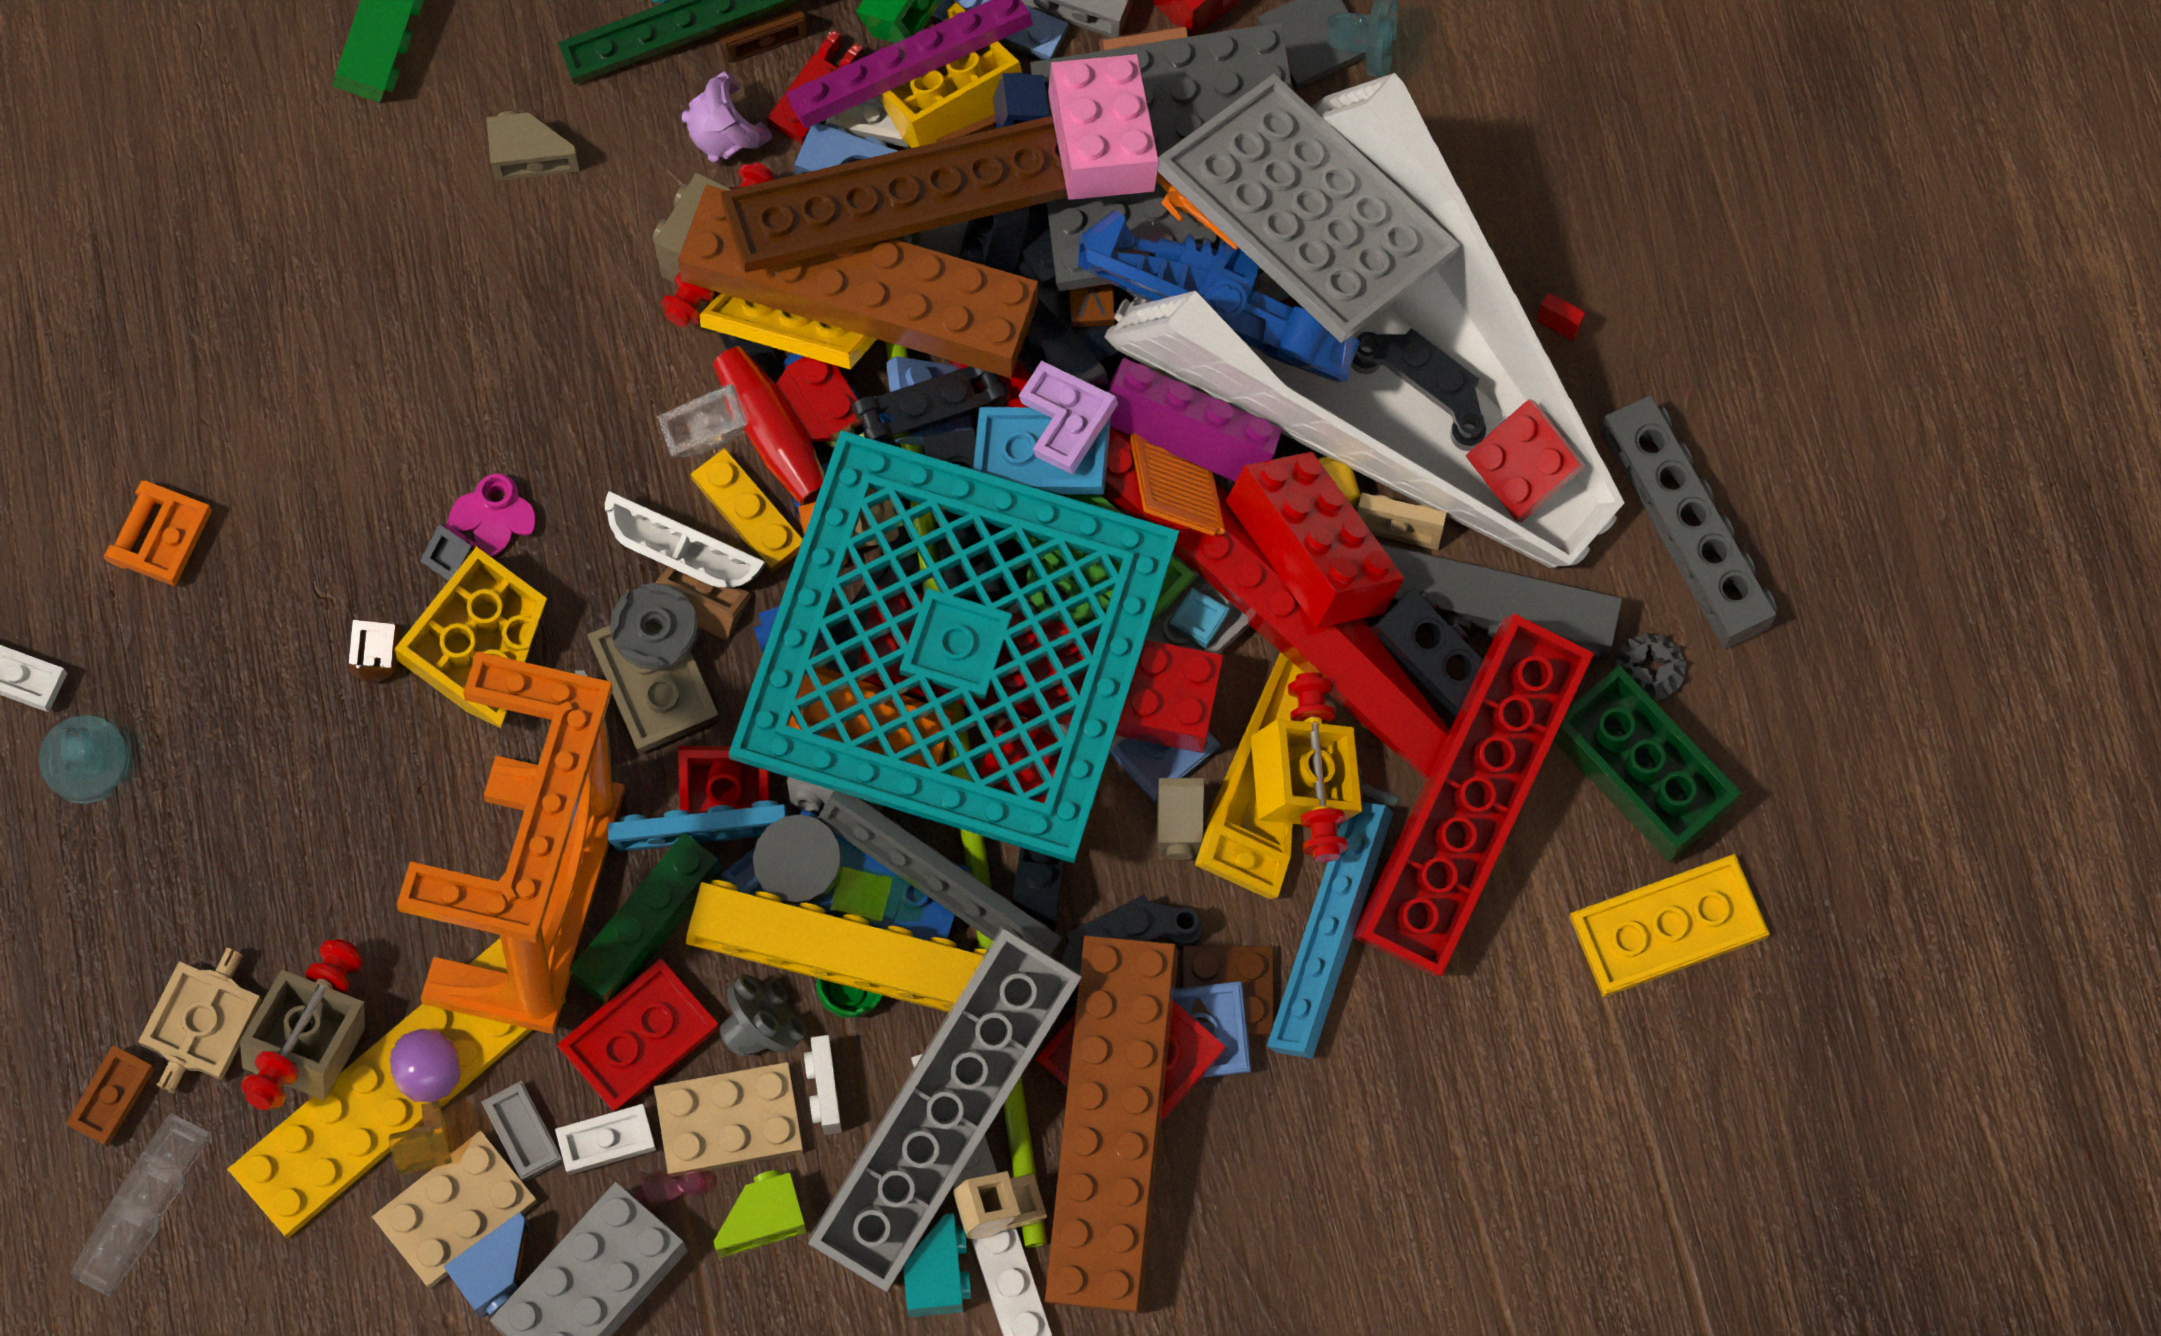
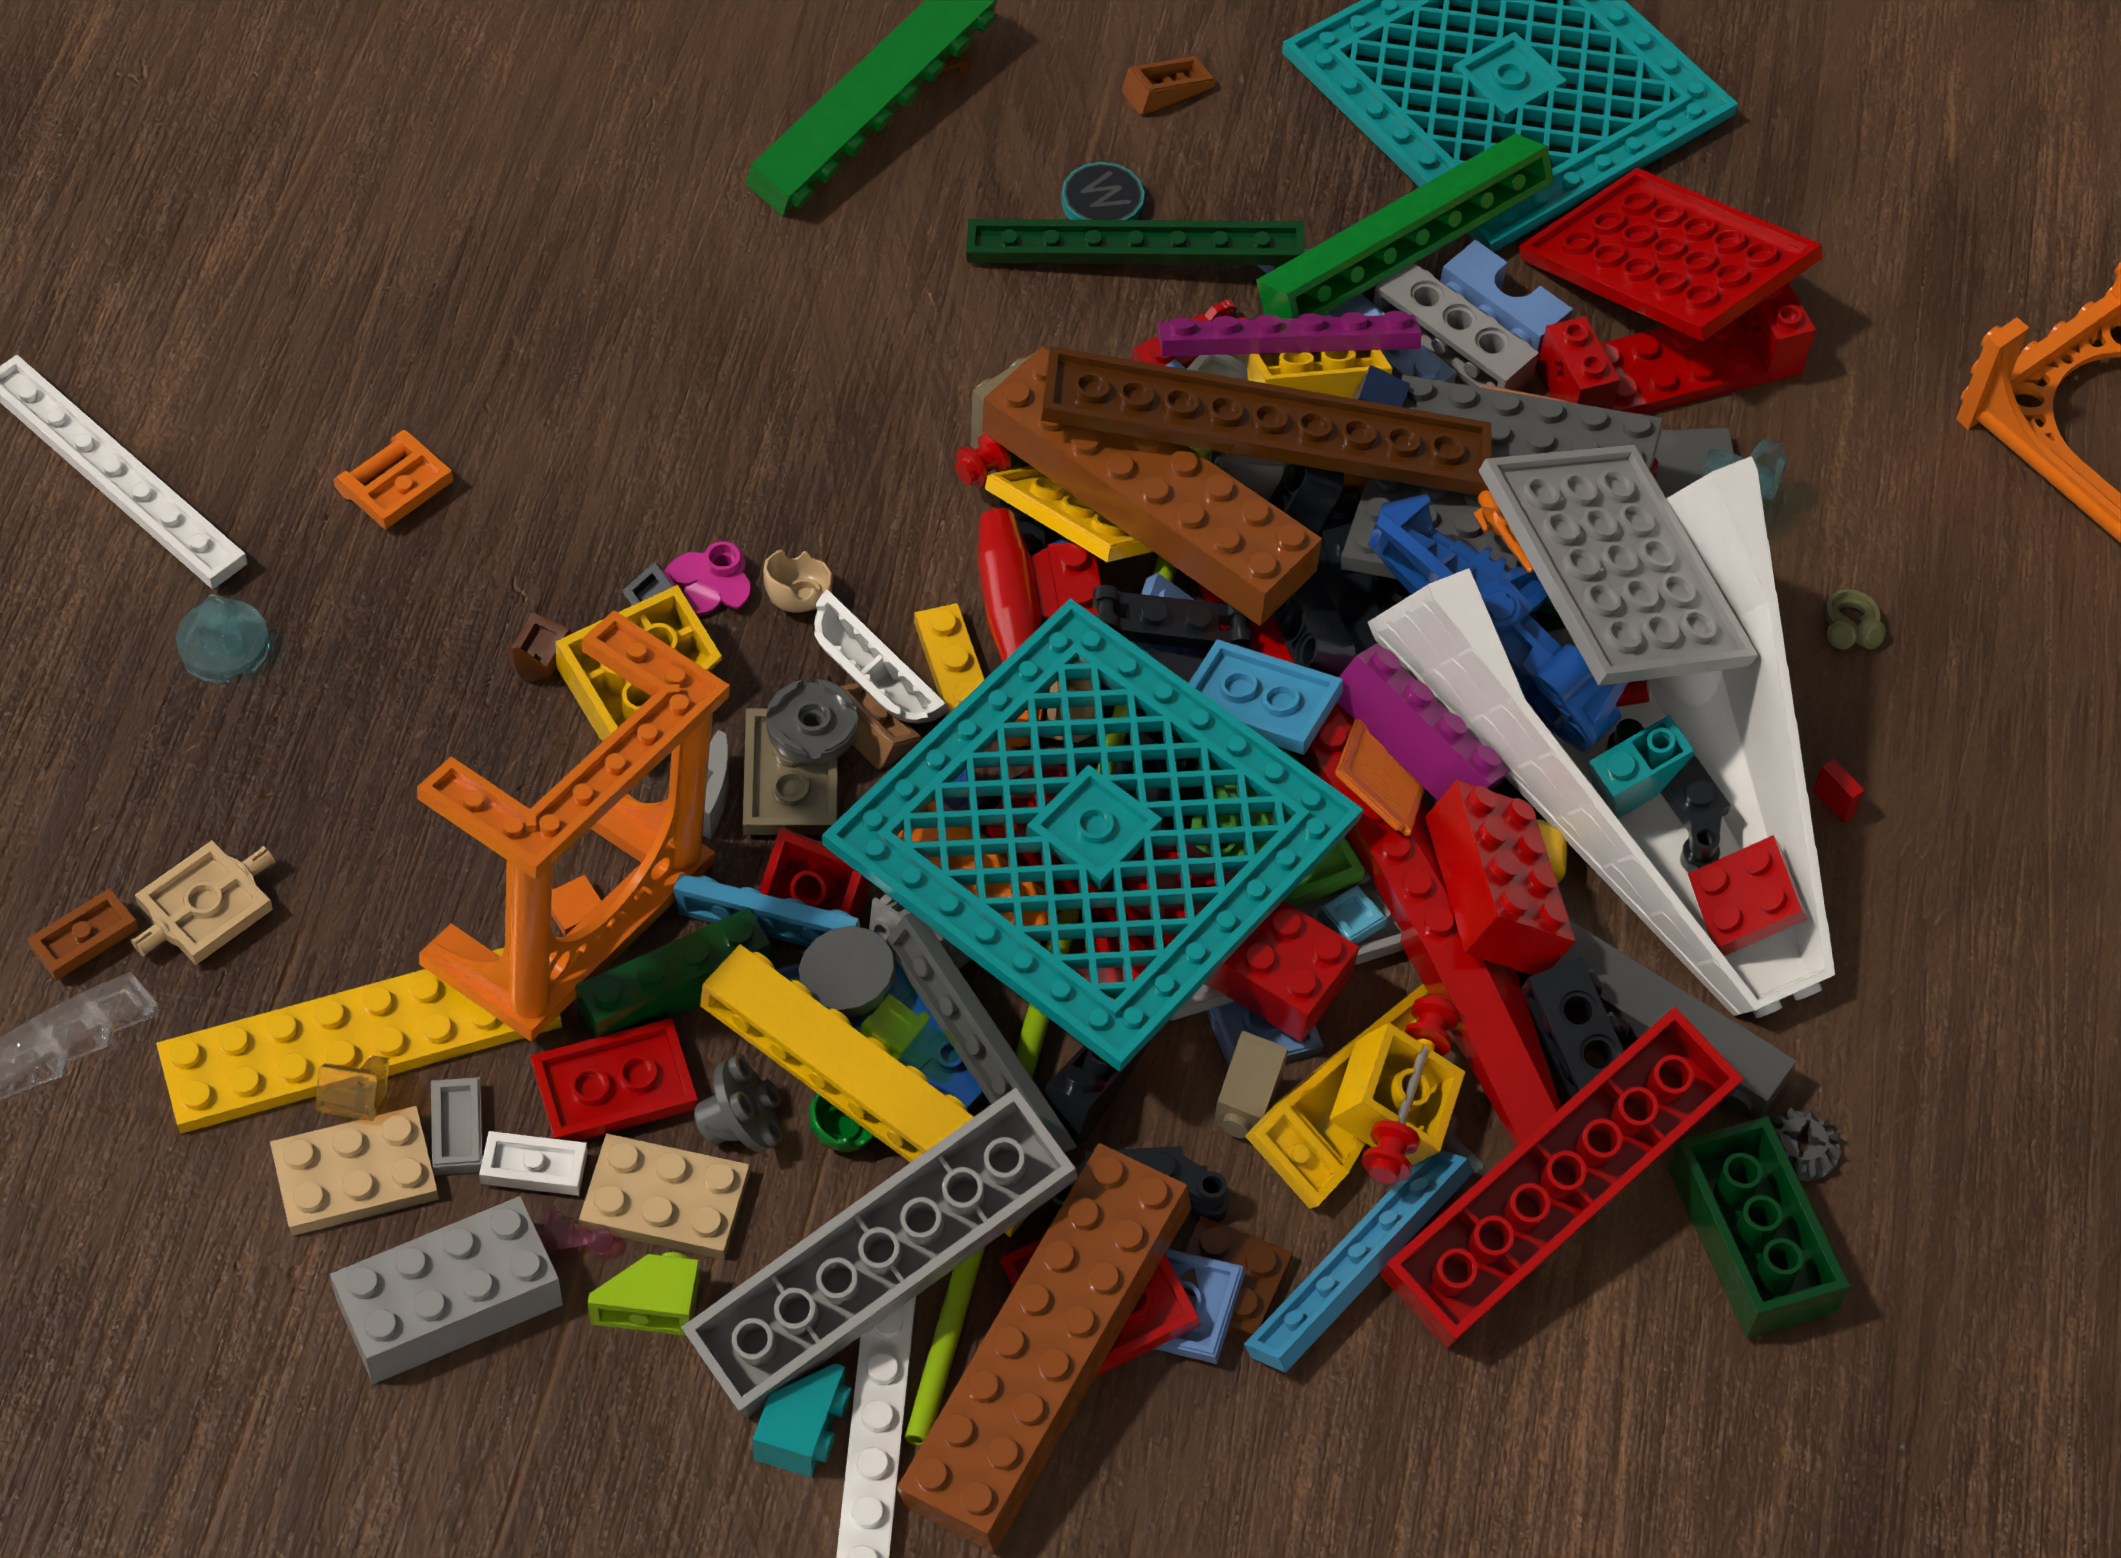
camera: 20 degrees right, 15 degrees down
(304, 1029) = (294, 940): dark tan brick -> none
(425, 1065) = (392, 1019): medium lavender hair -> none
(492, 1266) = (362, 1228): medium blue slope -> none
(527, 147) = (897, 293): dark tan slope -> none
(574, 488) = (796, 582): none -> tan hair
(703, 423) = (945, 566): clear slope -> none
(717, 125) = (1083, 325): lavender helmet -> none
(764, 35) = (1163, 282): reddish brown slope -> none
(825, 1104) = (767, 1217): white plate -> none
(998, 1204) = (890, 1373): tan brick -> none
(1076, 414) = (1305, 668): lavender plate -> none
(1092, 306) = (1368, 598): dark orange tile -> none
(1103, 127) = (1444, 425): bright pink brick -> none
(1392, 376) = (1640, 766): none -> teal slope
(1402, 521) = (1599, 910): tan plate -> none
(1508, 153) = (1843, 631): none -> olive piece
(1669, 925) = (1721, 1399): yellow tile -> none
(1729, 619) = (1905, 1131): dark grey brick -> none

